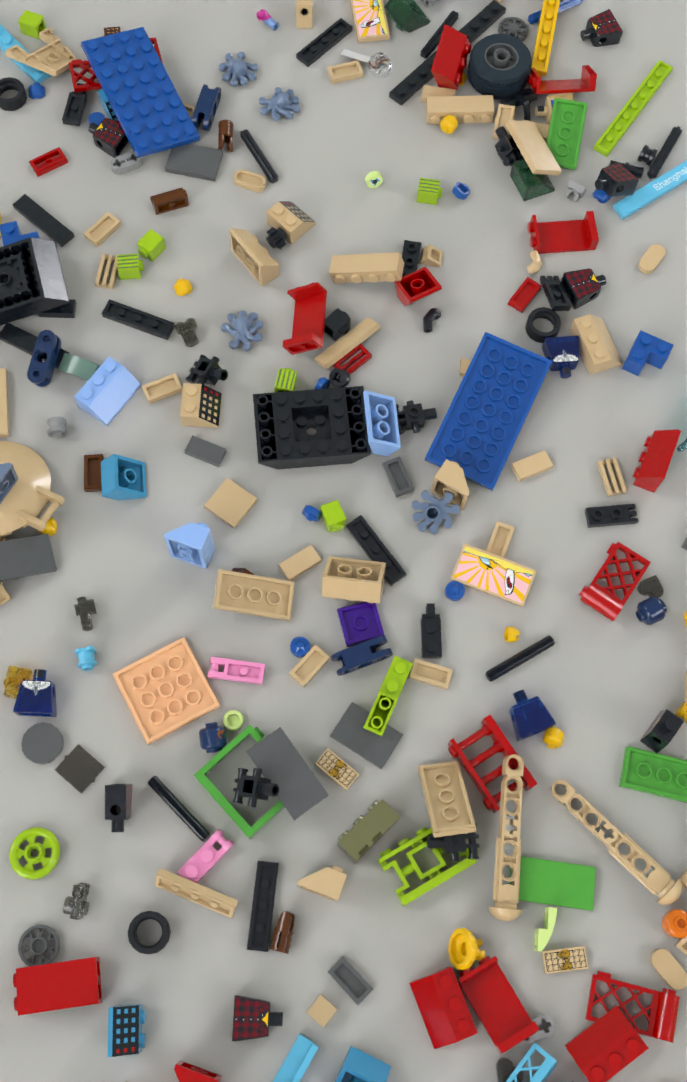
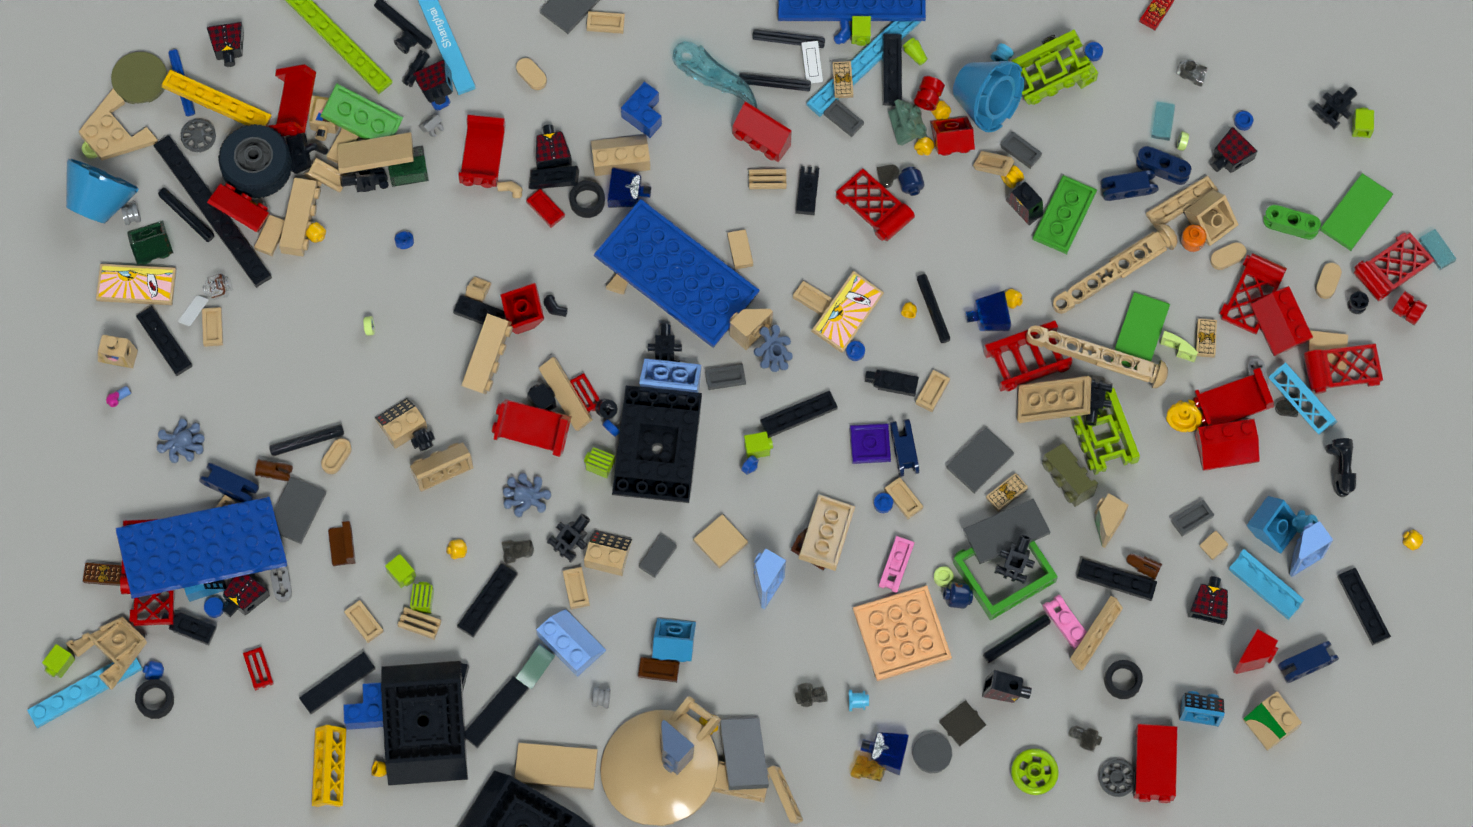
camera: 75 degrees left, 0 degrees up
(39, 371) = (510, 697): dark blue piece -> none
(280, 104) = (242, 404): sand blue animal -> none
(300, 563) = (798, 487): tan tile -> none
(353, 579) = (828, 438): tan slope -> none
(388, 696) = (948, 433): lime slope -> none
(428, 191) = (398, 273): lime brick -> none

